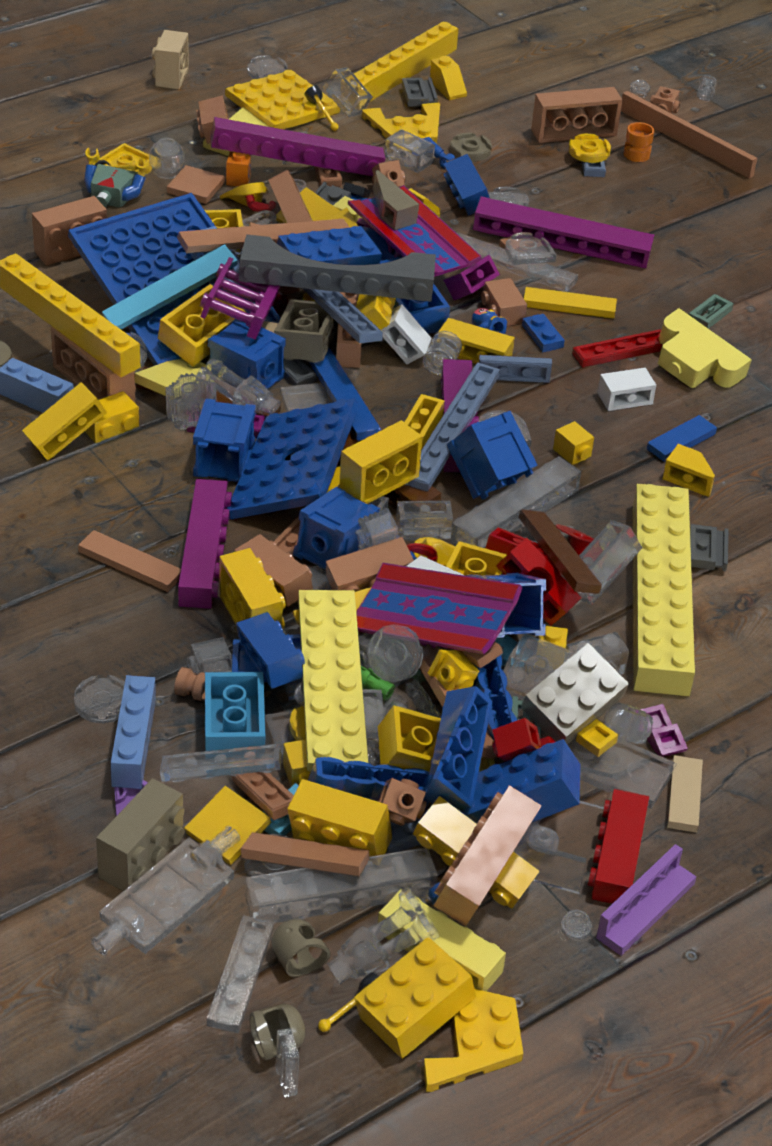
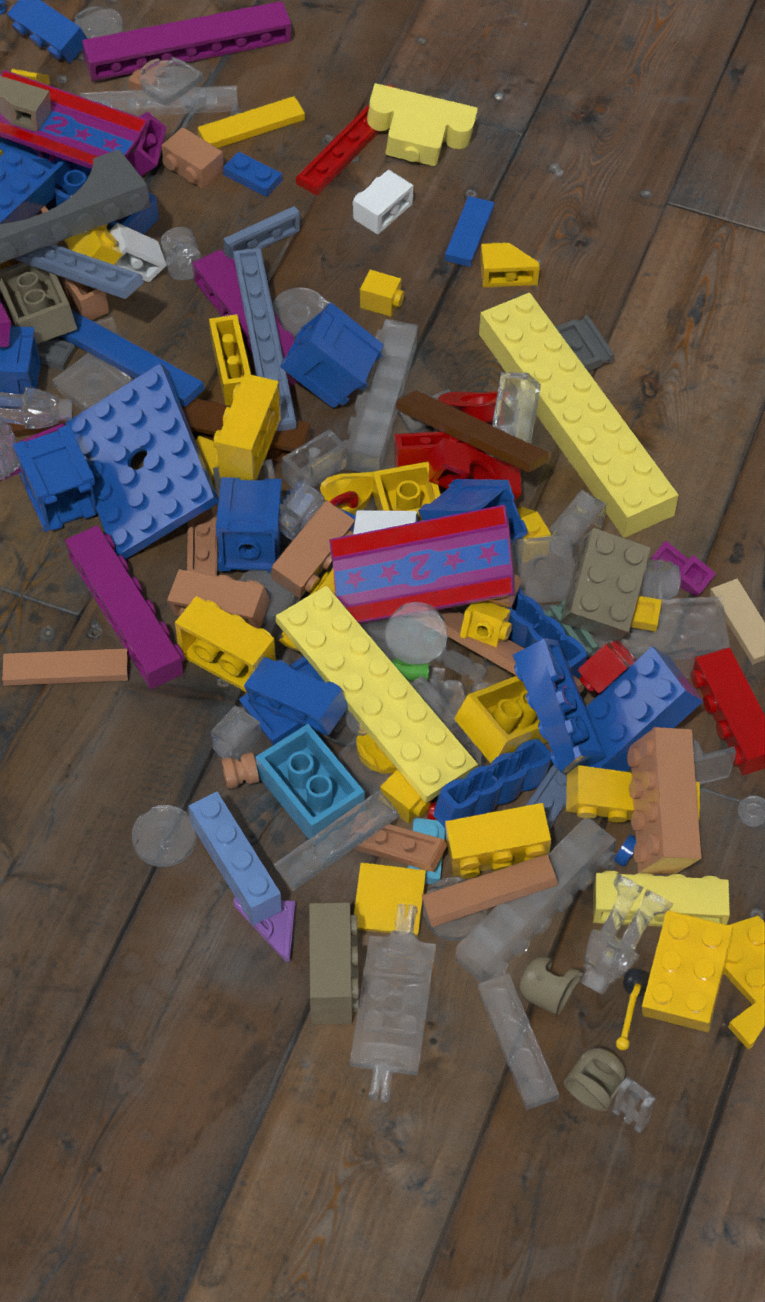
camera: 30 degrees left, 15 degrees up
(406, 790) = (541, 786): nougat brick -> none
(479, 341) = (207, 221): yellow brick -> none
(489, 320) = (197, 192): blue animal -> none
(714, 313) = (388, 79): sand green tile -> none

